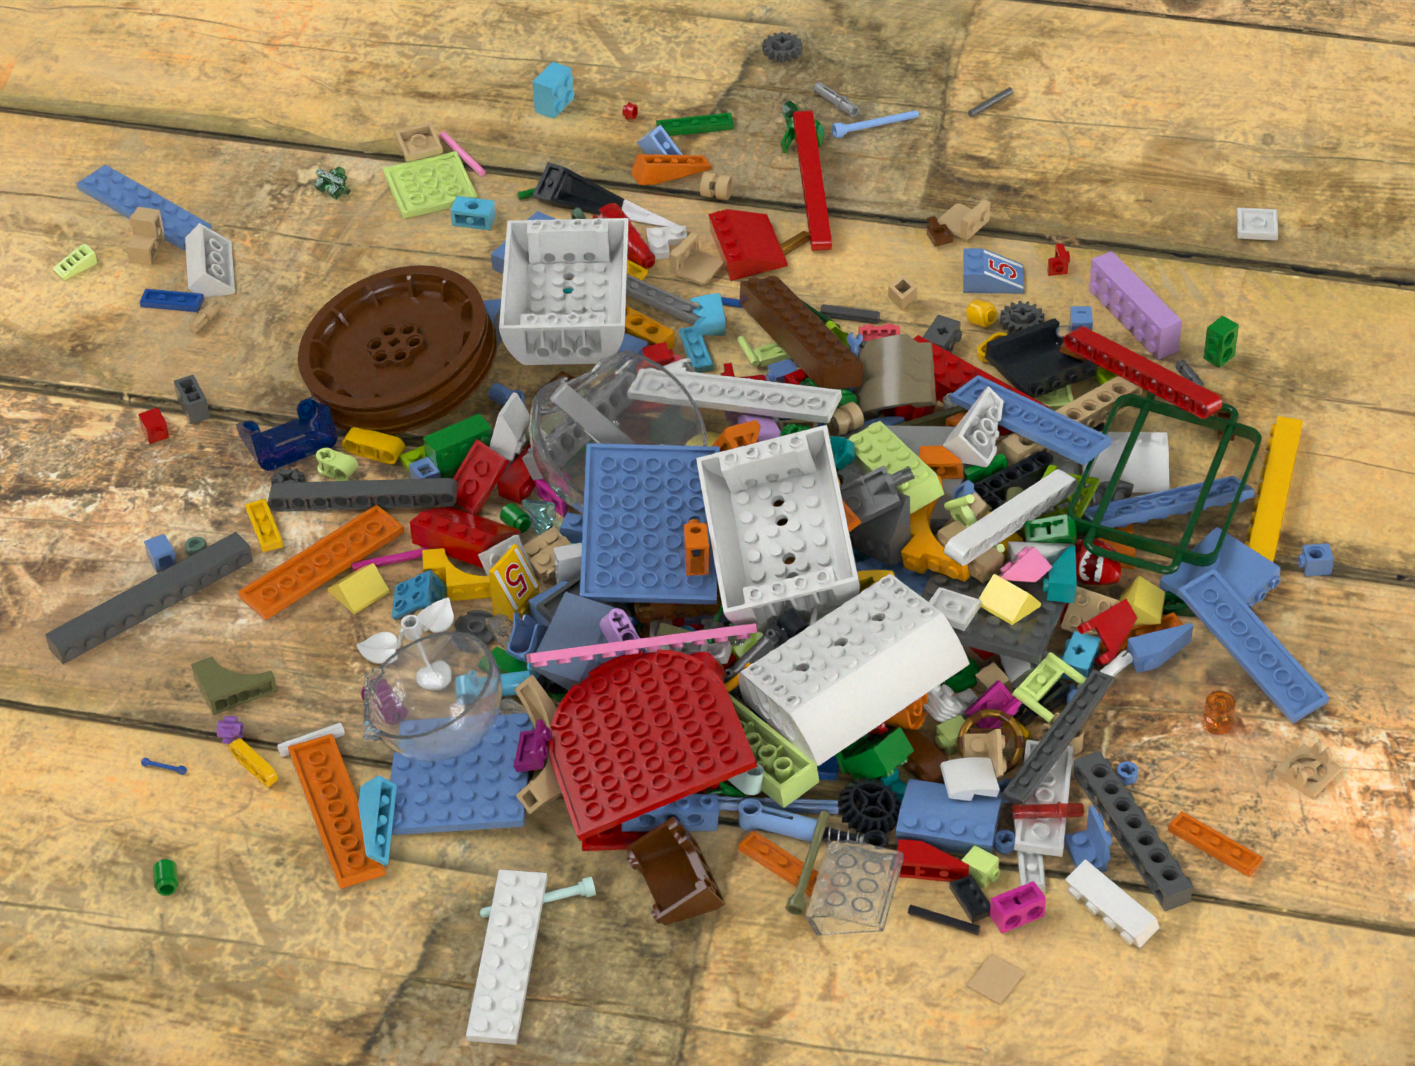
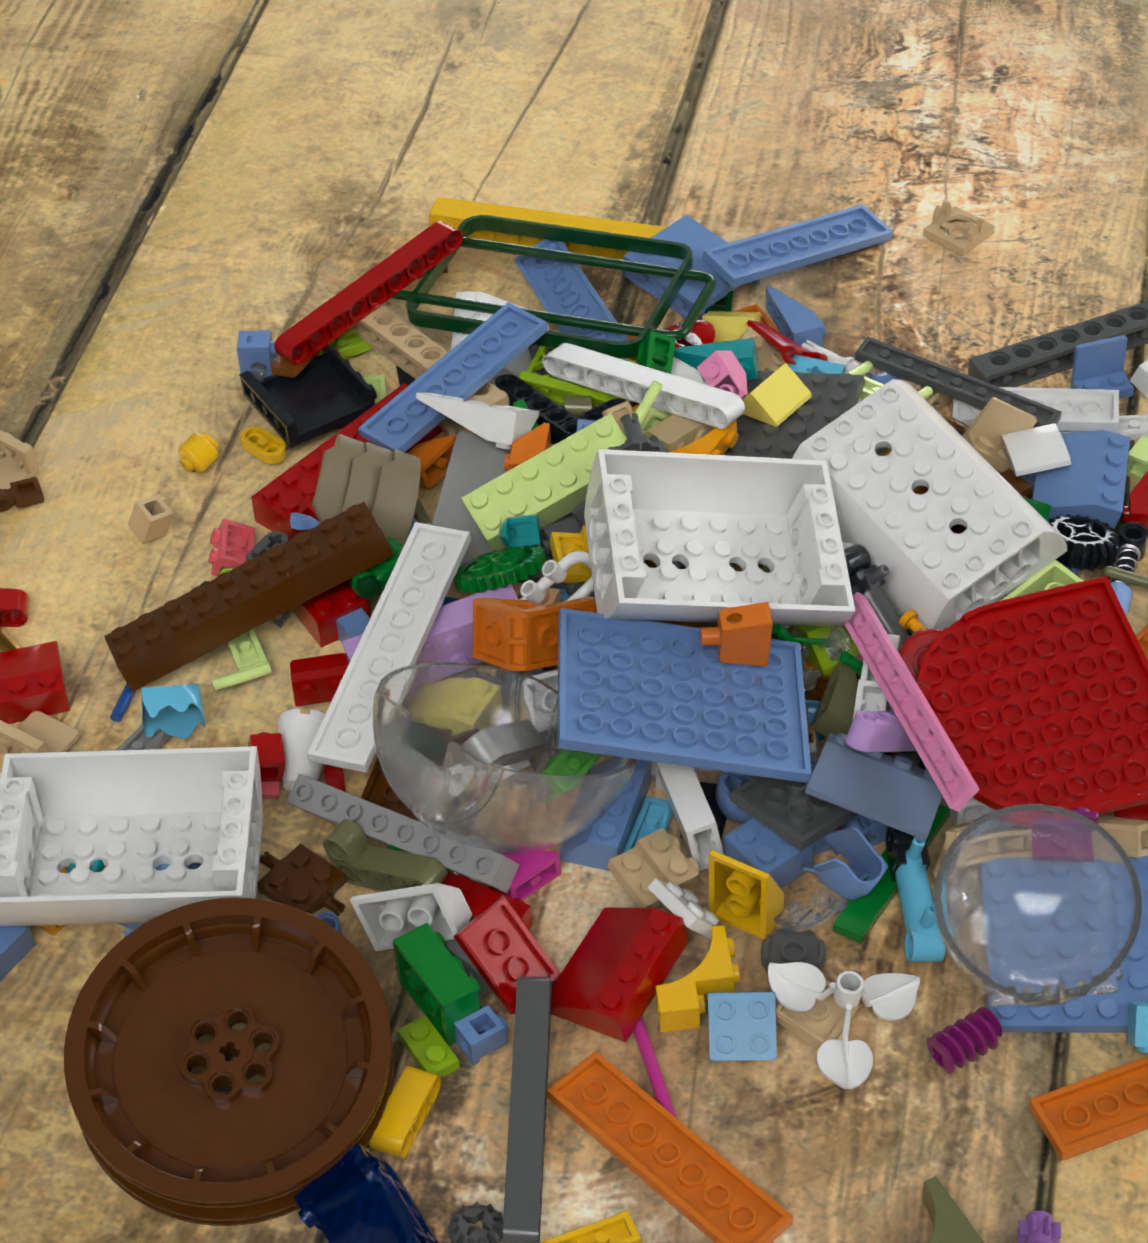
camera: 90 degrees left, 0 degrees up
(253, 762) = (1095, 1198): yellow beam -> none
(335, 464) = (451, 1159): yellowish green piece -> none
(336, 729) = (1034, 1134): white axle -> none
(360, 588) = (716, 1106): light yellow slope -> none
(515, 517) = (576, 917): green brick -> none
(540, 514) = (577, 892): clear light blue slope -> none
(696, 350) = (225, 735): medium azure tile -> none
(778, 370) = (297, 638): medium blue brick -> none
(850, 313) = (172, 577): dark grey axle -> none
(944, 332) = (234, 486): dark grey brick -> none
(956, 607) = (788, 435): white tile -> none
(991, 273) = (116, 450): medium blue slope -> none
(1020, 316) = (215, 417): dark grey gear -> none
(1056, 810) = (1068, 387): clear red axle -> none
(1059, 264) = (104, 383): red bracket -> none
(1129, 767) = (979, 348): medium blue bush -> none
(1135, 305) = (215, 314): lavender brick -> none
(1188, 373) = (330, 289): dark grey axle -> none
(1215, 844) = (1070, 297): orange tile -> none
(1219, 712) = (893, 278): clear orange wheel -> none
(1221, 341) = (294, 250): green brick -> none
(1257, 224) = (66, 226): white plate -> none
(1316, 559) = (652, 205): medium blue brick -> none

